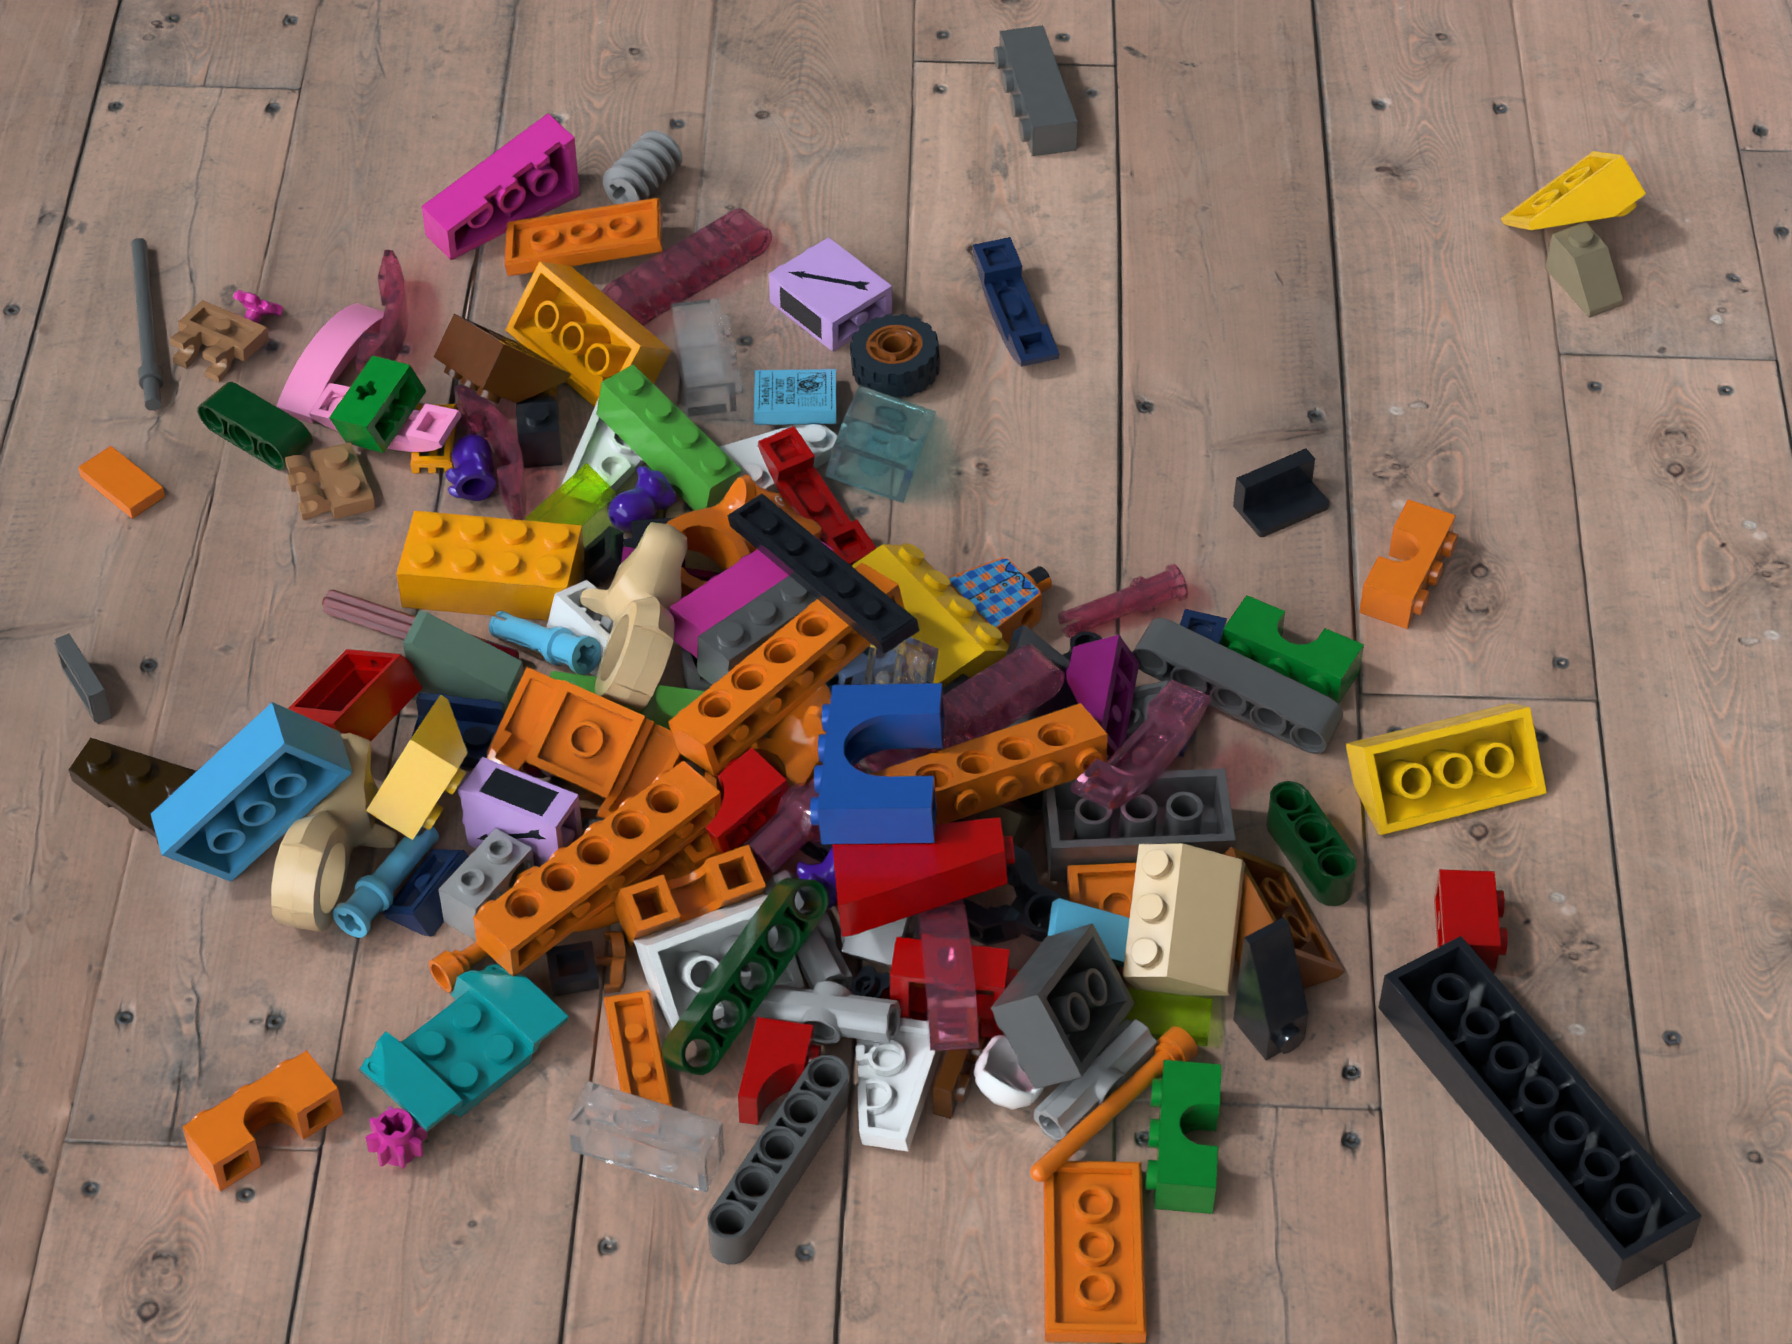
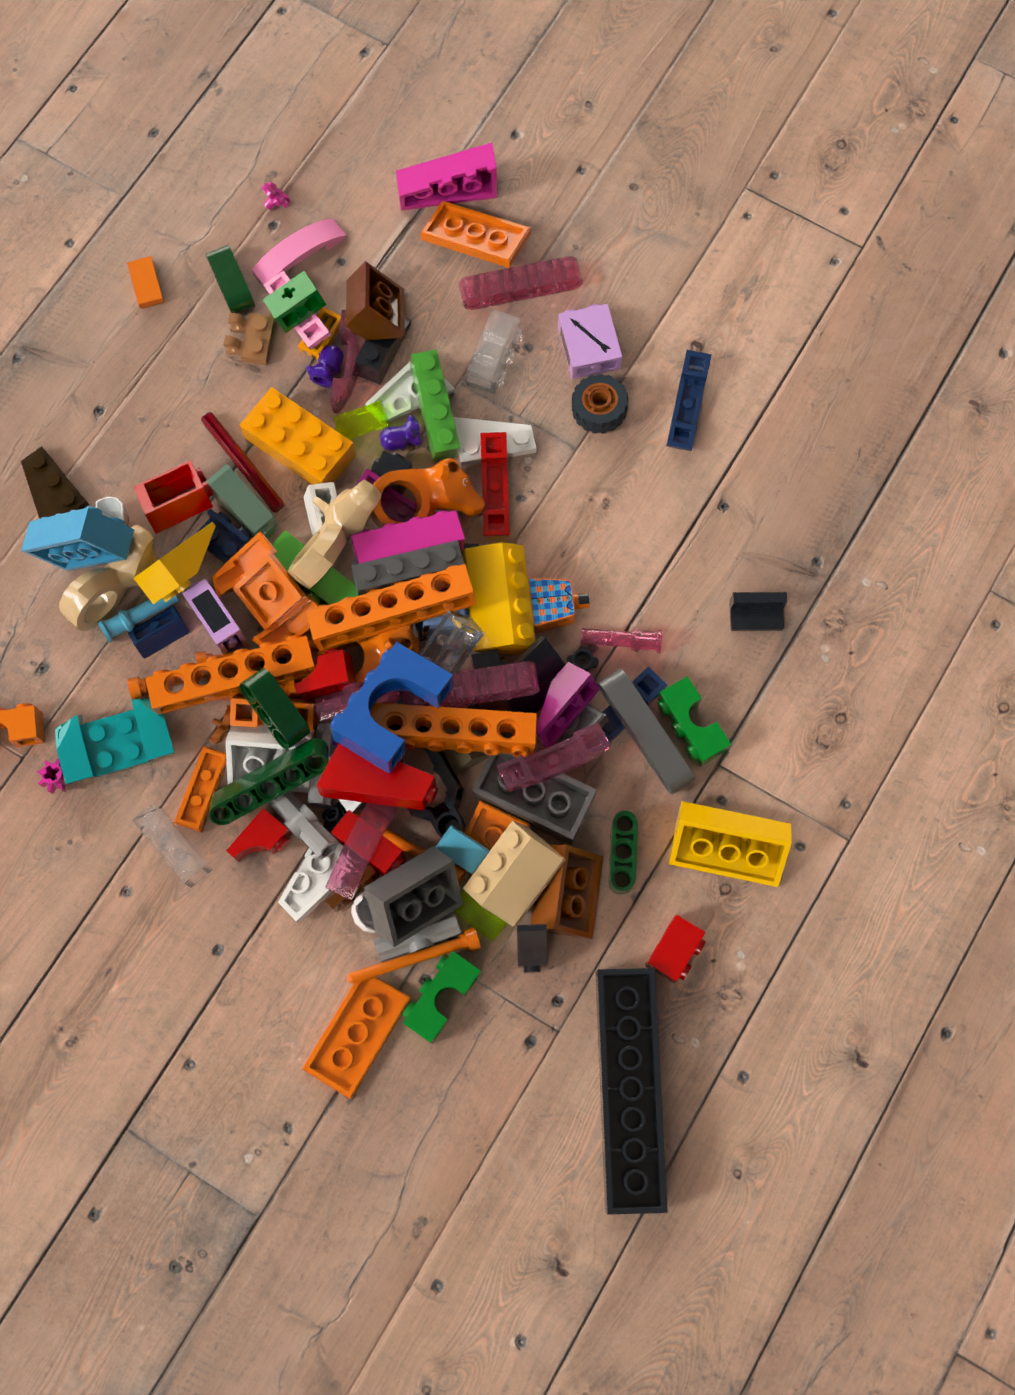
camera: 30 degrees right, 25 degrees up
(82, 678) = (55, 406): dark grey tile -> none
(149, 373) = (197, 215): dark grey bar -> none
(225, 334) = (249, 205): medium nougat plate -> none
(395, 318) = (320, 262): clear pink slope -> none
(483, 878) = (180, 646): light grey brick -> none
(557, 644) = (297, 514): medium azure pin -> none
(572, 968) = (197, 720): black plate -> none
(582, 330) = (437, 305): light orange slope -> none
(603, 556) = (360, 462): black plate -> none
(642, 168) = (535, 197): light grey piece -> none
(700, 862) = (274, 708): none -> dark green beam
(778, 1177) = (216, 894): dark grey beam -> none
(795, 397) = (527, 404): medium azure tile -> none
(823, 573) = (439, 561): black tile -> none
(880, 443) = (556, 459): clear light blue slope -> none
(1036, 91) = (799, 249): dark grey brick -> none
(1399, 588) = (780, 712): orange arch -> none

